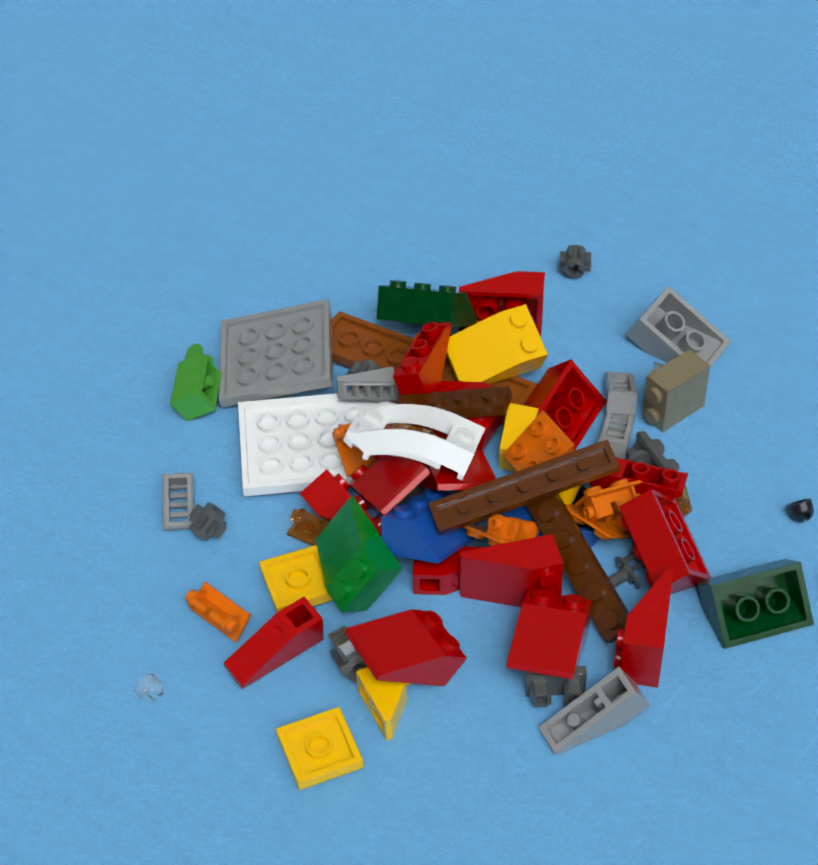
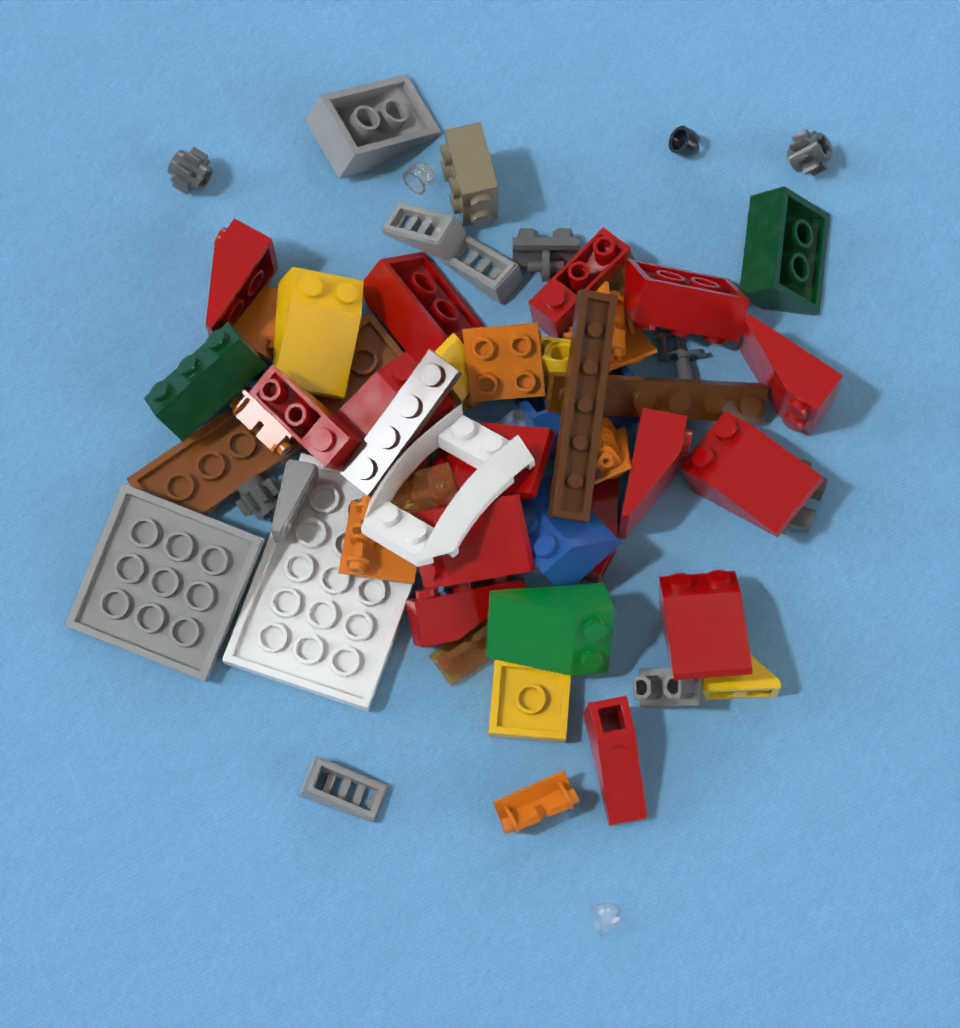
camera: 65 degrees left, 25 degrees up
(195, 384) = (165, 697): bright green hinge -> none
(207, 521) = (398, 766): dark grey gear -> none
(319, 748) = (766, 768): yellow plate -> none
(595, 712) = (850, 479): light grey slope -> none

